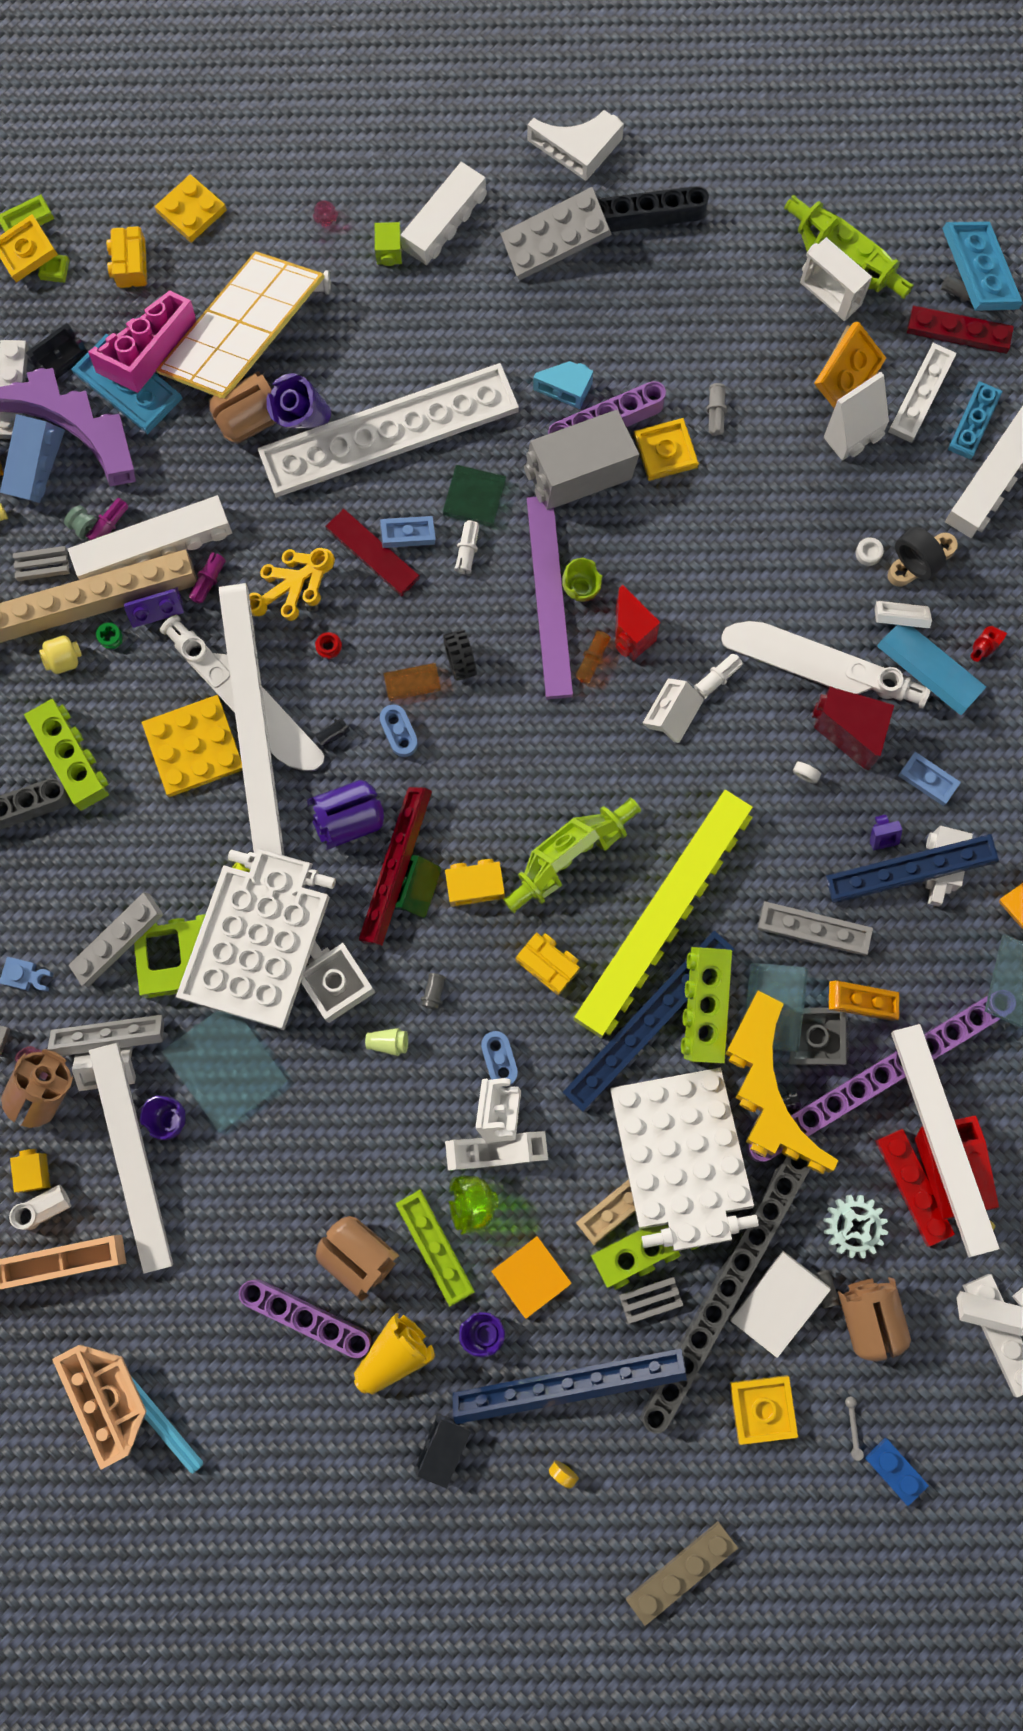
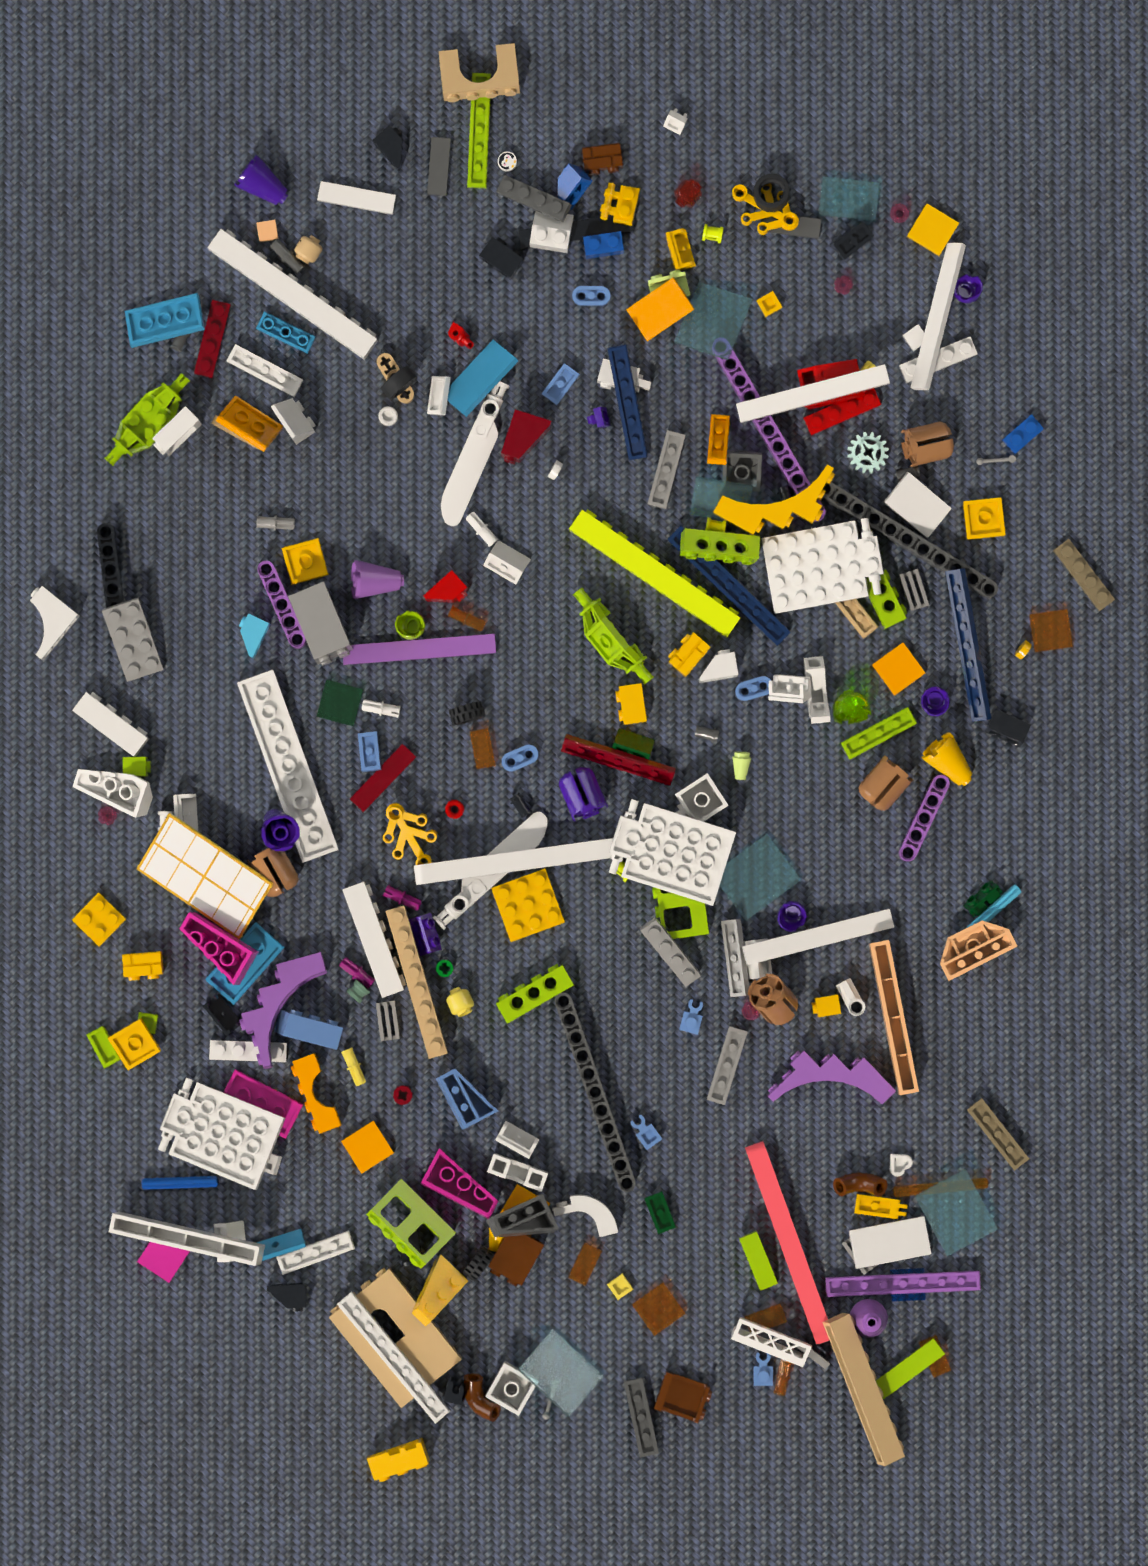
camera: 90 degrees left, 10 degrees up
(175, 1401) = (975, 904): none -> dark green hinge
(328, 306) = (186, 809): none -> white hinge
(353, 220) = (116, 789): none -> white wedge
(529, 1006) = (721, 667): none -> white slope
(593, 1519) = (1050, 630): none -> clear orange tile
(643, 530) = (373, 579): none -> medium lavender cone
(737, 999) = (714, 525): none -> neon yellow bush

